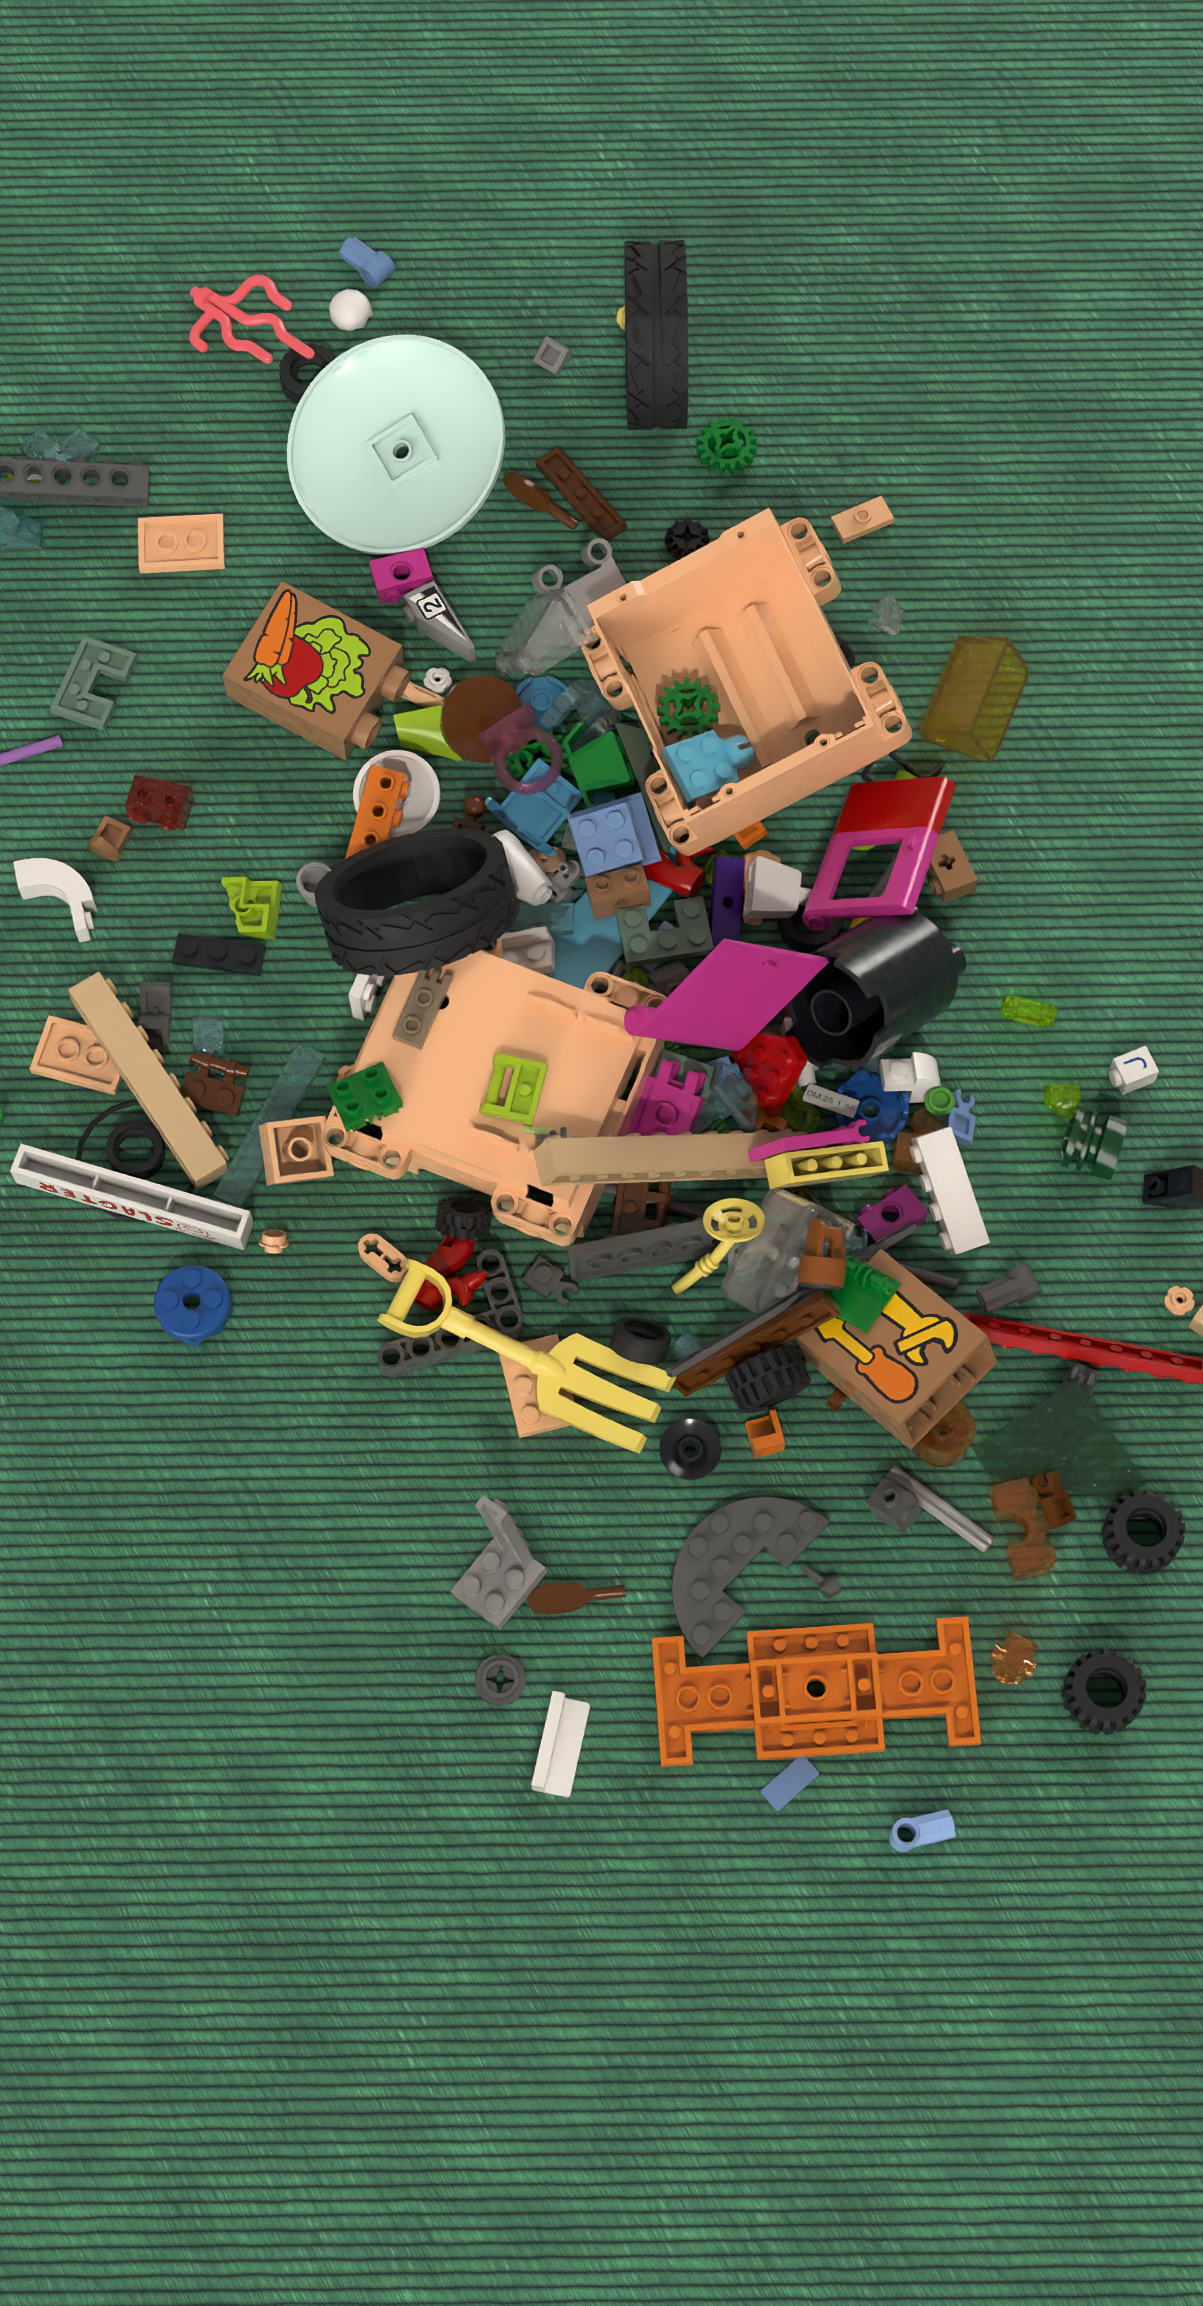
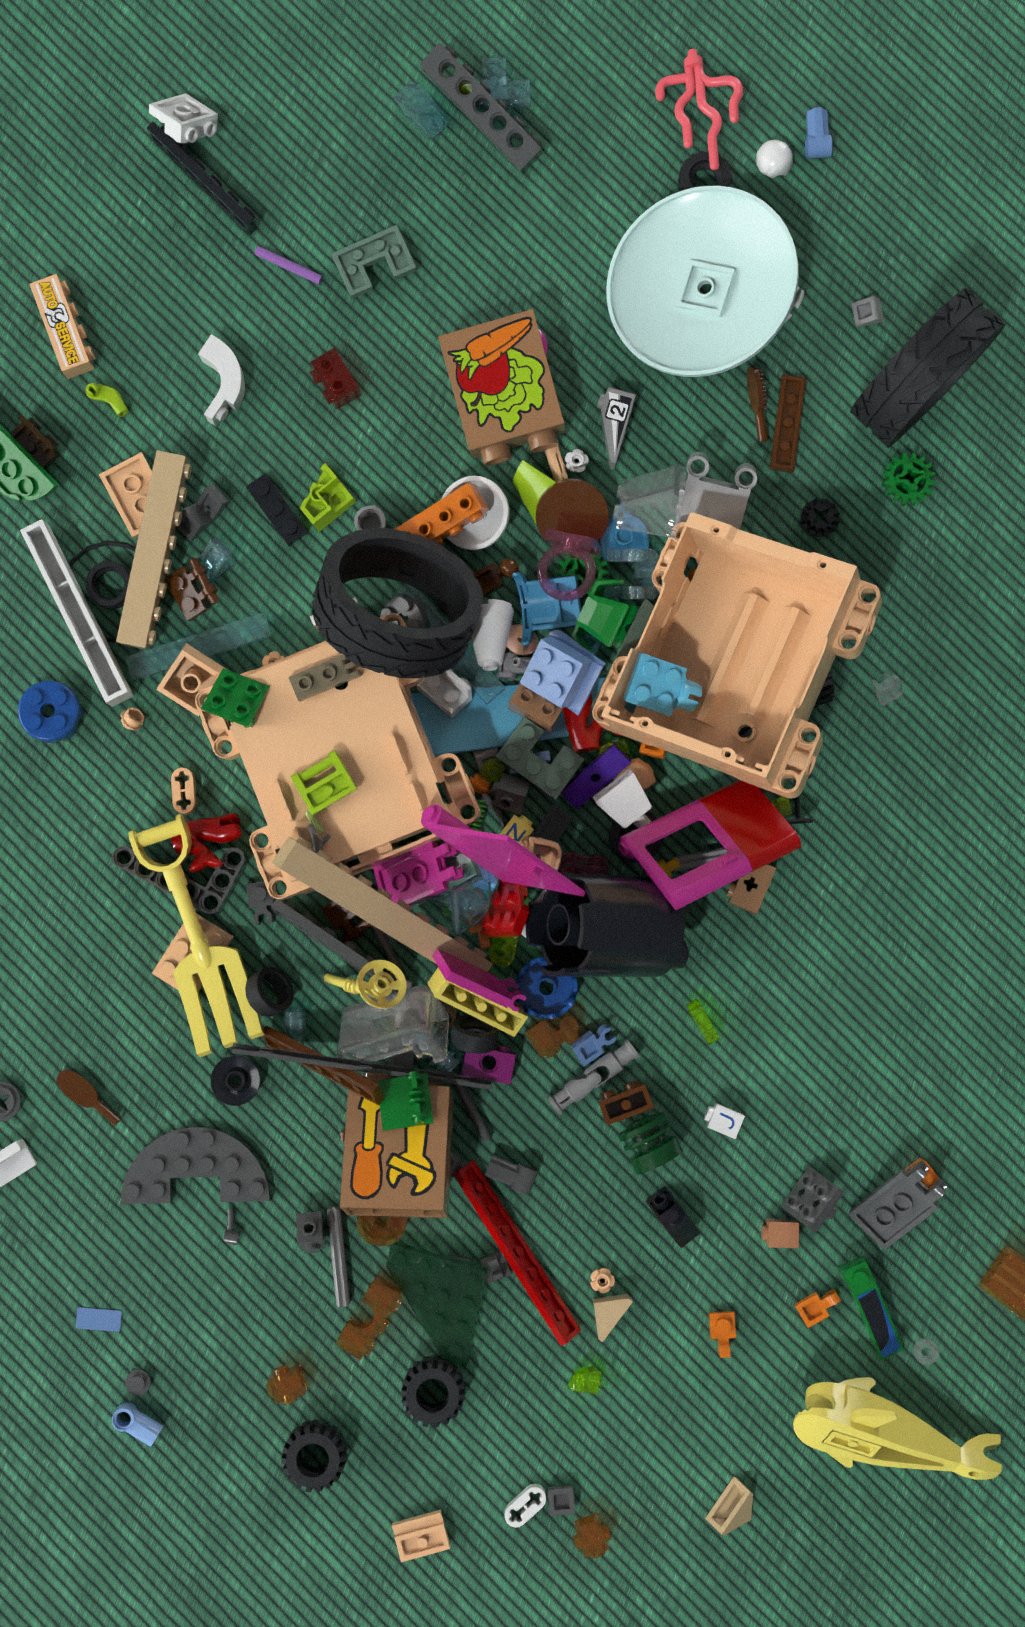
camera: 50 degrees right, 15 degrees up
(109, 839) = (286, 373): medium nougat tile -> none
(181, 543) = (515, 219): light nougat plate -> none
(387, 570) = (617, 359): dark pink brick -> none
(463, 1218) = (236, 820): black tyre -> none
(502, 1572) = (55, 1044): light grey bracket -> none
(680, 700) = (692, 647): green gear -> none
(765, 1435) = (286, 1114): orange panel -> none
(768, 1378) = (312, 1091): black tyre -> none
(775, 1693) = (185, 1310): orange piece -> none
(819, 1271) = (392, 1073): dark orange piece -> none
(831, 1100) = (525, 961): white sticker -> none
(855, 1198) = (473, 1035): none -> black tyre
(862, 519) = (940, 610): light nougat plate -> none
(884, 1796) = (138, 1382): none -> dark grey plate
(910, 1075) = (588, 995): white brick -> none
(939, 1101) = (587, 1025): bright green plate -> none
(949, 1191) = (535, 1085): white brick -> none
(976, 697) = (882, 796): clear yellow windscreen -> none
(987, 1161) = (582, 1085): none -> light grey piece
(1038, 1136) = (625, 1103): none -> reddish brown brick
(1056, 1503) = (403, 1325): reddish brown plate -> none
(1062, 1098) = (665, 1094): clear neon green piece -> none

